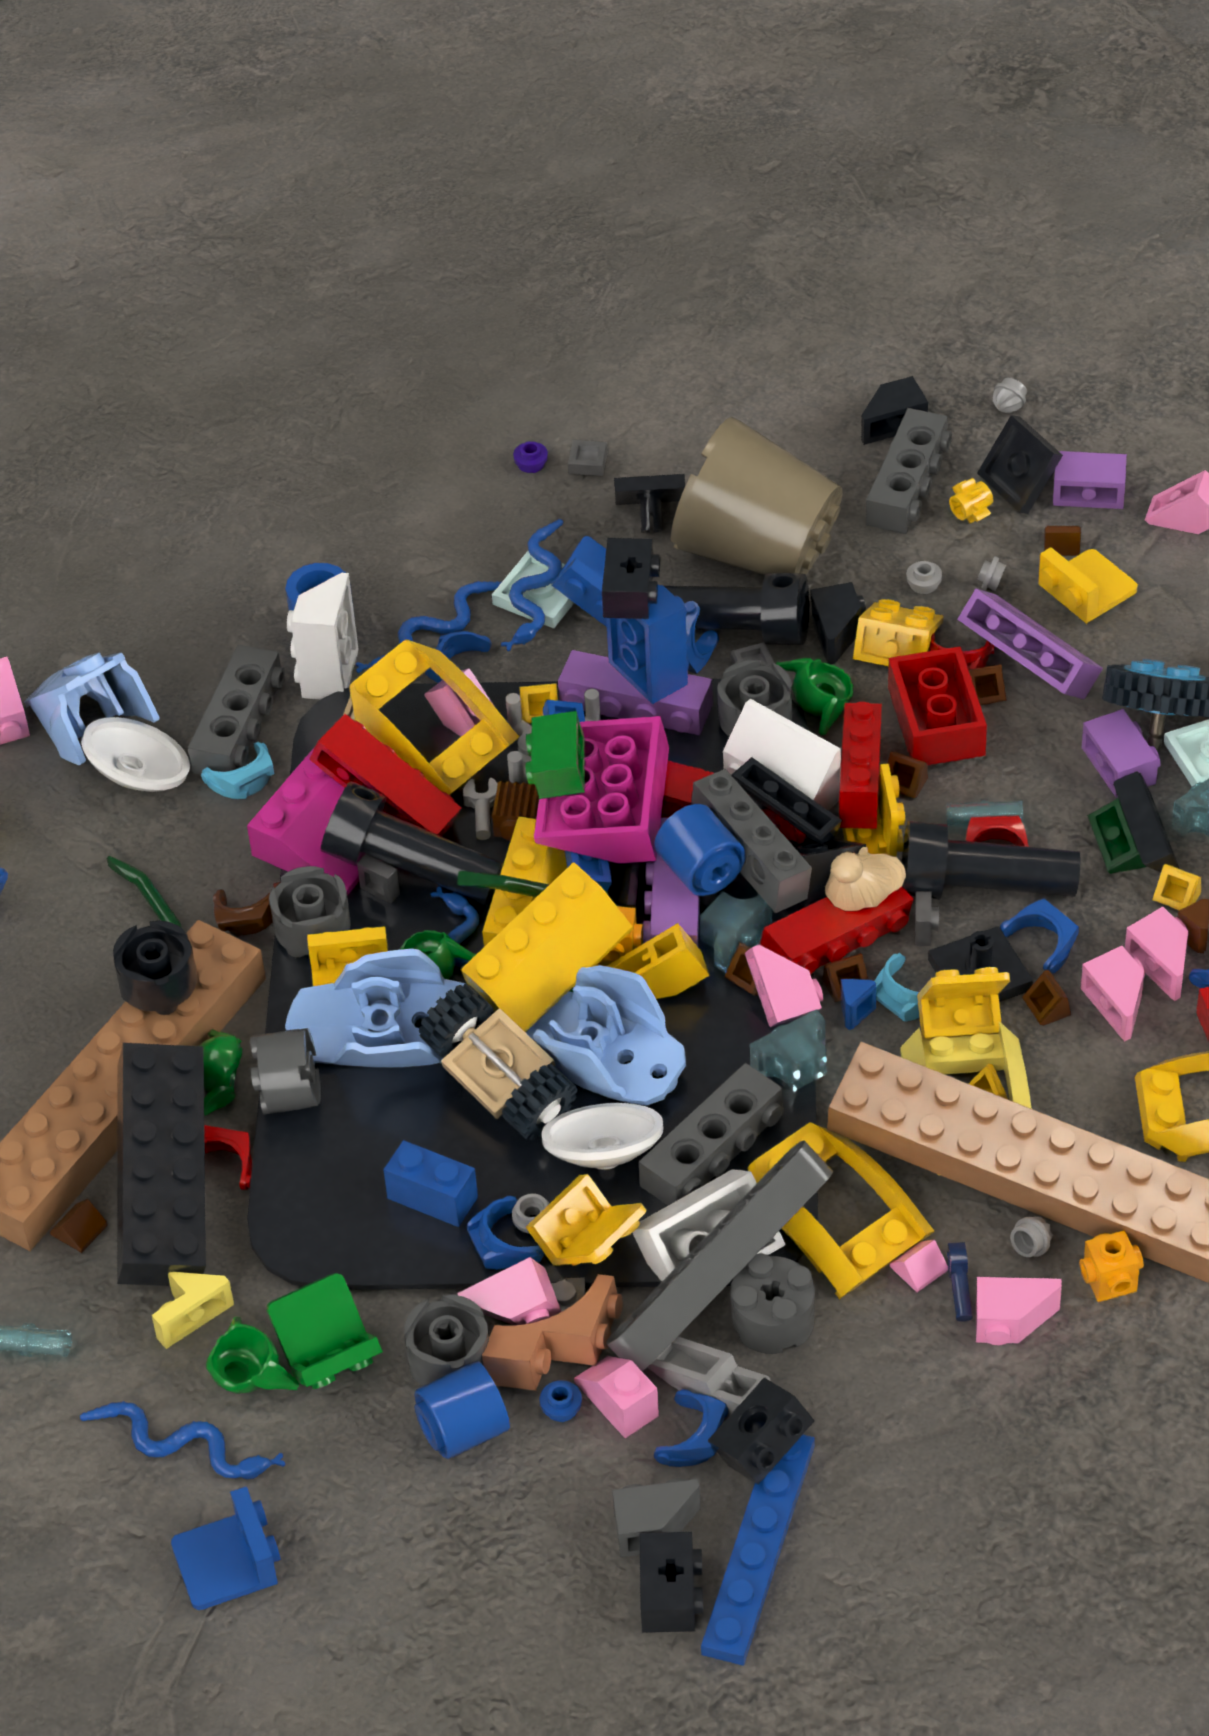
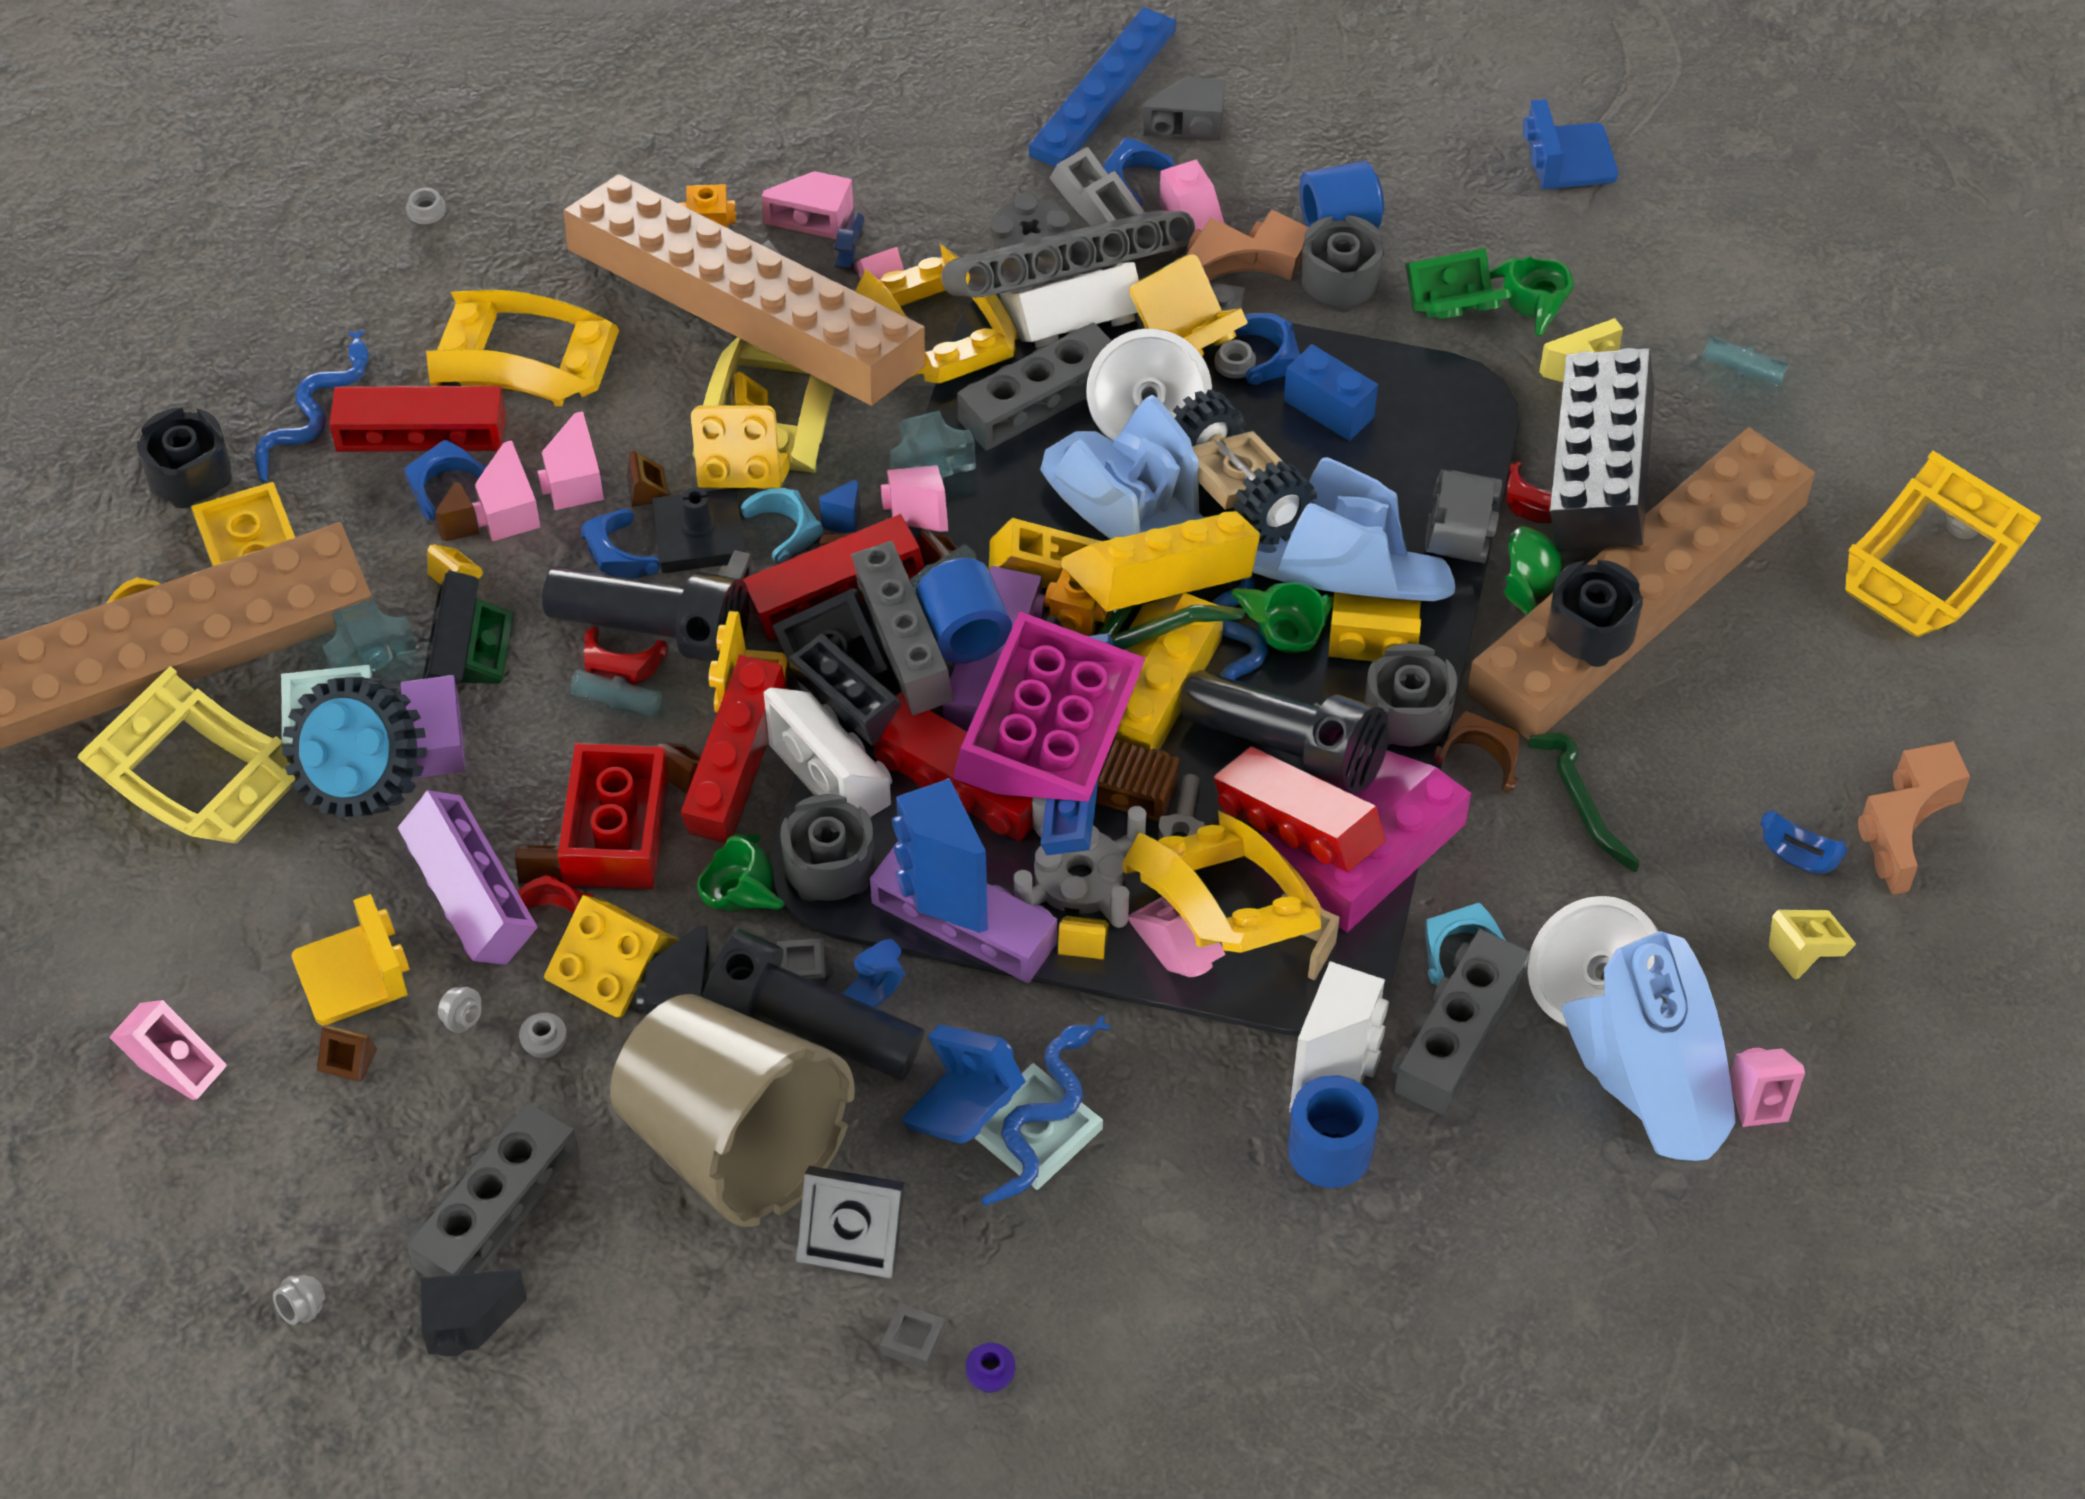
camera: 170 degrees left, 5 degrees up
(80, 1226) = (1689, 458): reddish brown slope -> none
(247, 1468) = (1542, 223): blue animal -> none
(438, 625) = (1256, 1069): blue animal -> none
(457, 643) = (1178, 1067): blue helmet -> none
(516, 1294) = (1273, 286): bright pink slope -> none
(556, 755) = (1096, 719): green brick -> none
(560, 1410) = (1244, 216): blue plate -> none
(628, 578) = (956, 818): black brick -> none
(667, 1582) = (1189, 52): black brick -> none
(761, 1430) = (1077, 125): black brick -> none
(863, 879) = (793, 577): tan hair -> none
(971, 500) = (435, 1121): yellow gear -> none
(1019, 464) = (347, 1145): black tile -> none
(1090, 480) = (267, 1124): medium lavender brick -> none

